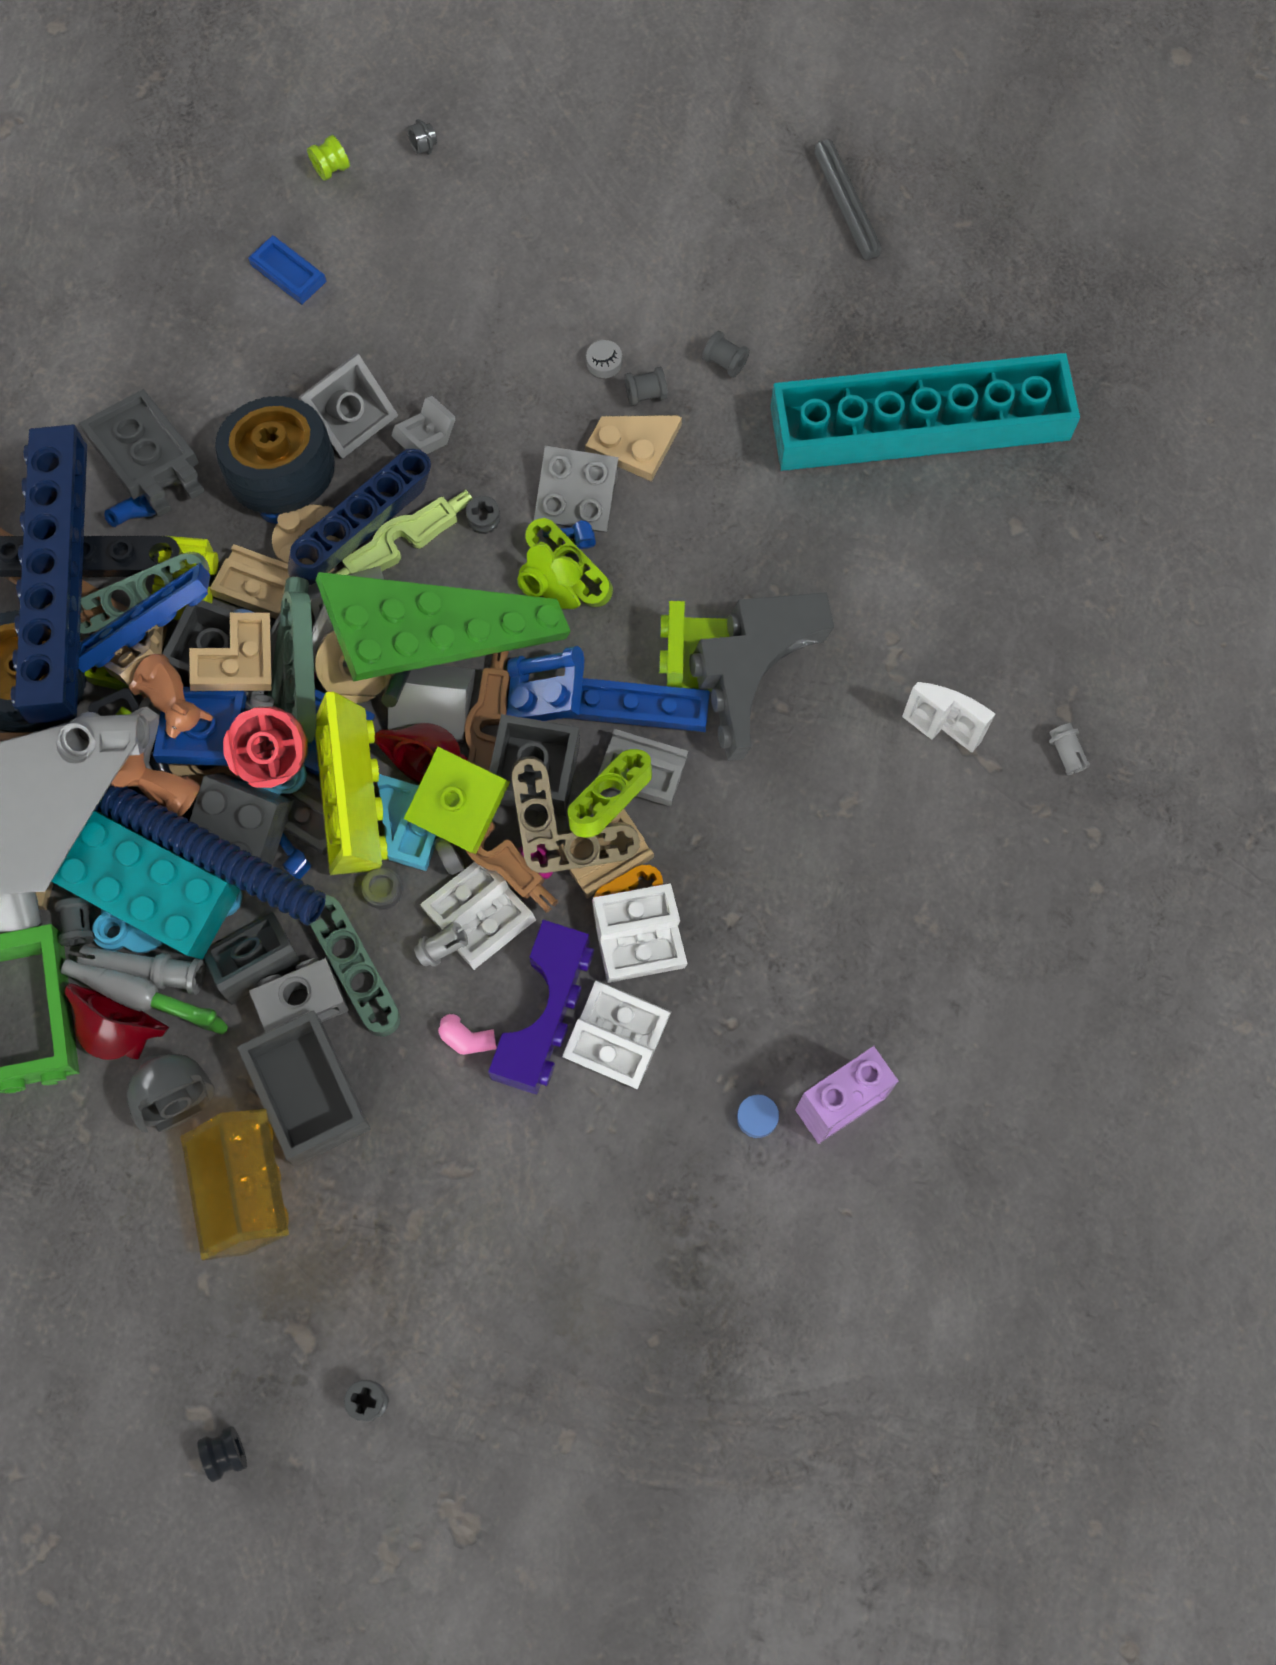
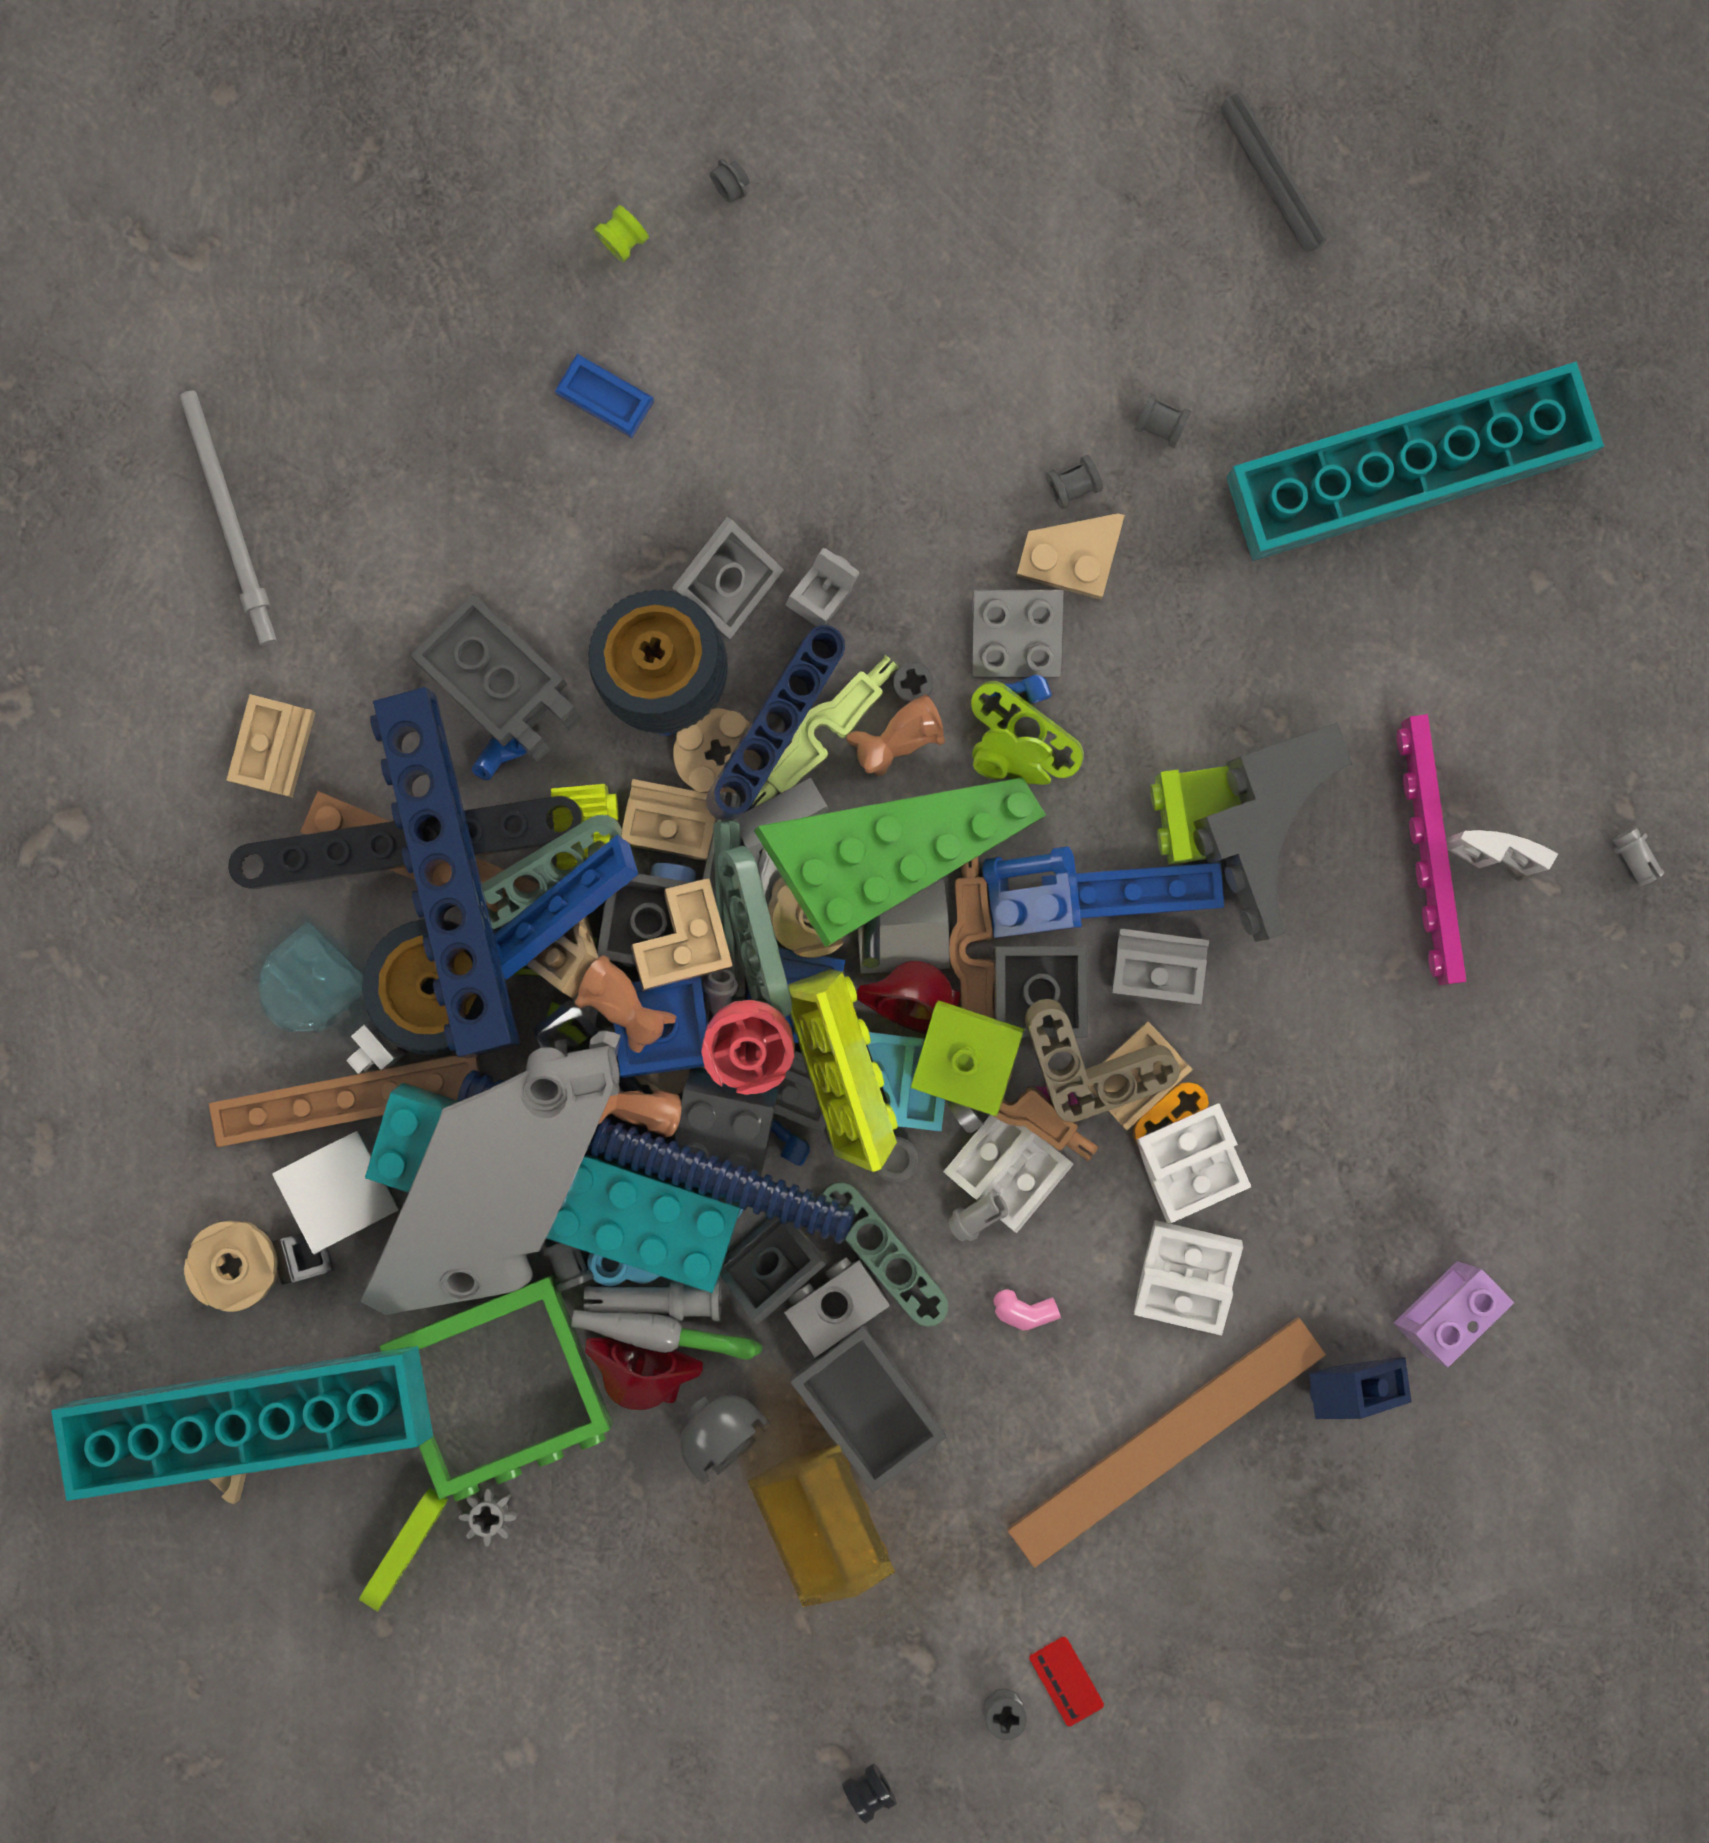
camera: 10 degrees left, 15 degrees up
(433, 1385) = (1066, 1681): none -> red sticker
(468, 544) = (906, 732): none -> nougat animal
(525, 1054) = (1095, 1324): dark purple arch -> none
(567, 1177) = (1166, 1442): none -> medium nougat tile
(604, 359) = (1015, 450): light grey tile -> none
(609, 807) = (1134, 997): lime beam -> none
(753, 1156) = (1360, 1389): none -> dark blue slope
(757, 1116) = (1356, 1340): medium blue tile -> none
(891, 728) = (1434, 868): none -> dark pink plate

